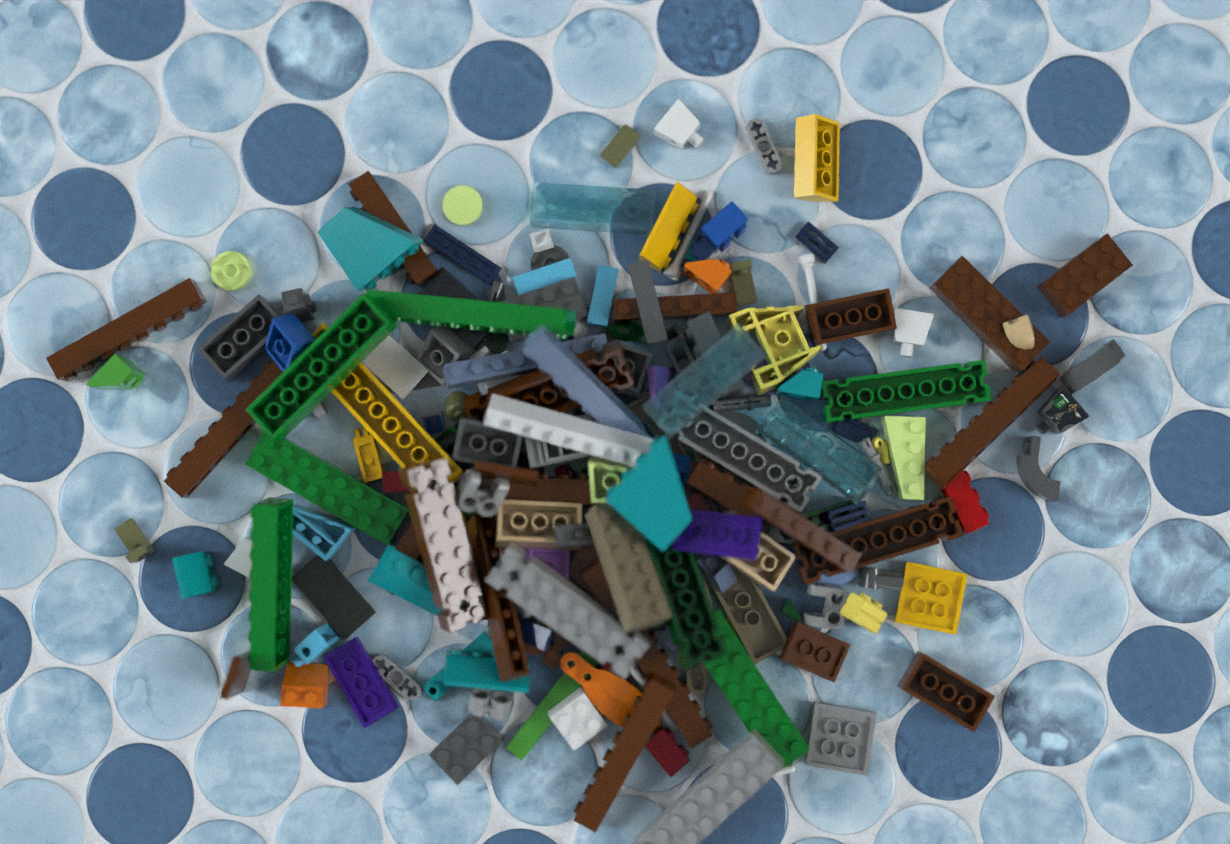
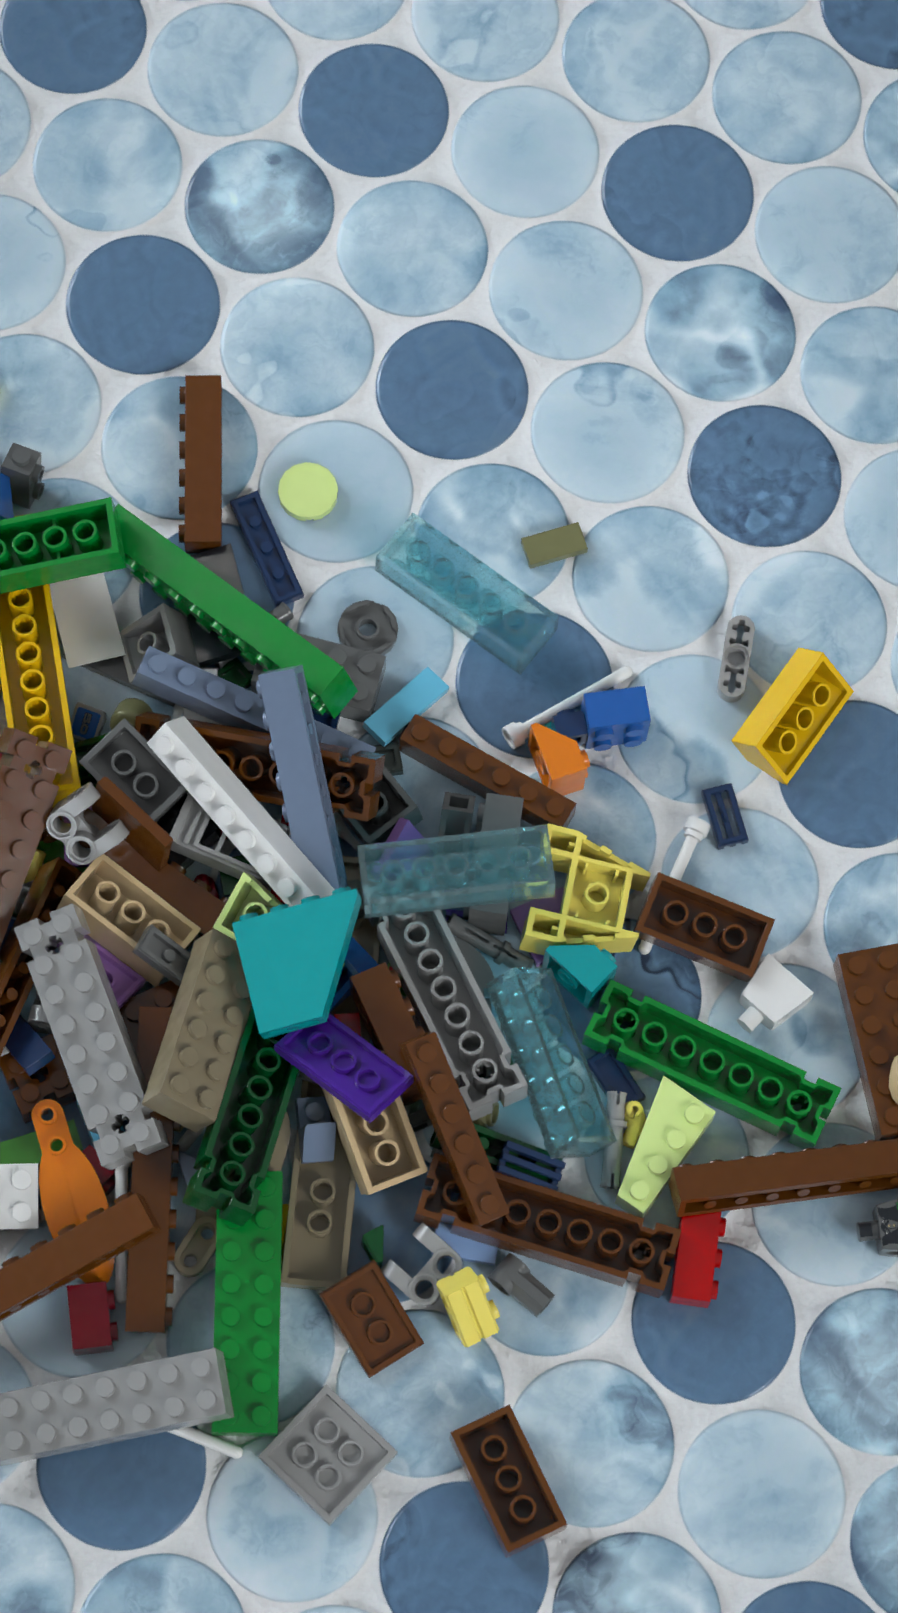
camera: 25 degrees right, 15 degrees down
(367, 246) = (156, 459): teal slope -> none
(541, 240) = (376, 592): white tile -> none
(544, 276) = (350, 634): medium azure tile -> none
(628, 331) = (411, 770): dark green plate -> none
(647, 302) = (454, 741): dark grey tile -> none
(668, 227) = (544, 675): yellow slope -> none
(679, 127) = (643, 567): white torso -> none
(743, 282) = (596, 800): olive bracket -> none
(931, 598) = (570, 1352): yellow plate -> none
(1032, 475) = (810, 1294): dark grey arch -> none

